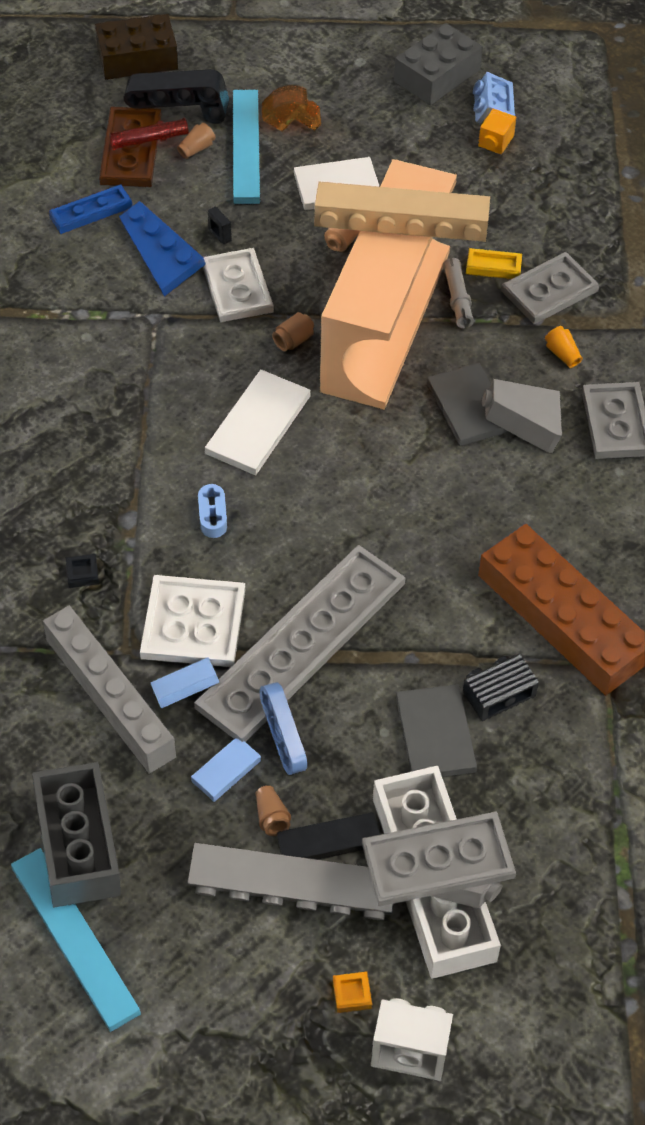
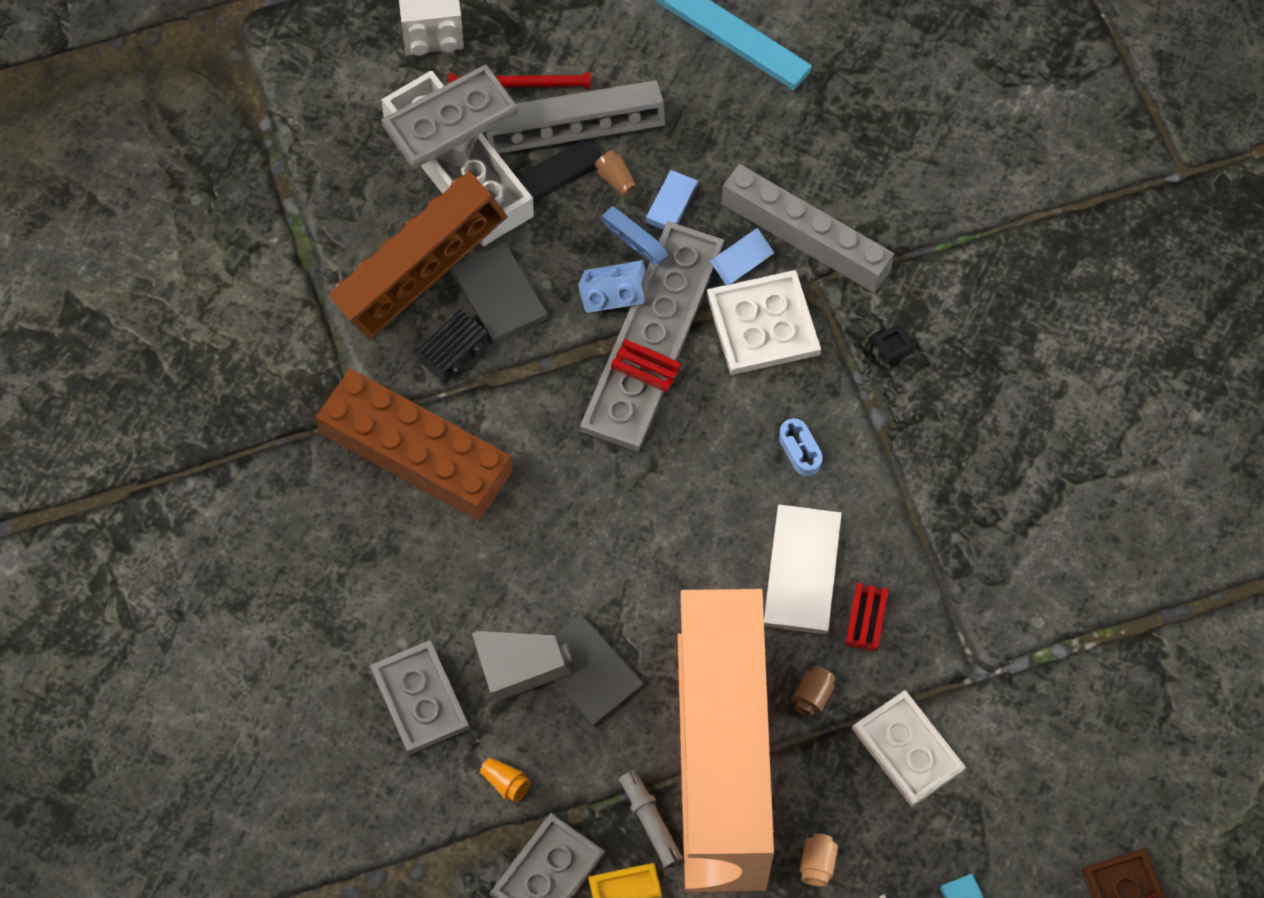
camera: 160 degrees right, 10 degrees up
(76, 834) = (767, 88): dark grey brick -> none
(90, 209) = (1130, 802): blue tile -> none
(162, 250) = (1017, 763): blue wing -> none
(218, 371) = (871, 592): none -> red tile
(219, 225) = (966, 817): black tile -> none
(323, 691) = (612, 286): none -> light blue bracket
(327, 593) = (651, 356): none -> red tile
(332, 953) = (539, 80): none -> red bar
(352, 992) = (495, 58): light orange tile -> none
(402, 211) = (727, 748): tan brick -> none
(512, 745) = (418, 255): none -> dark orange brick

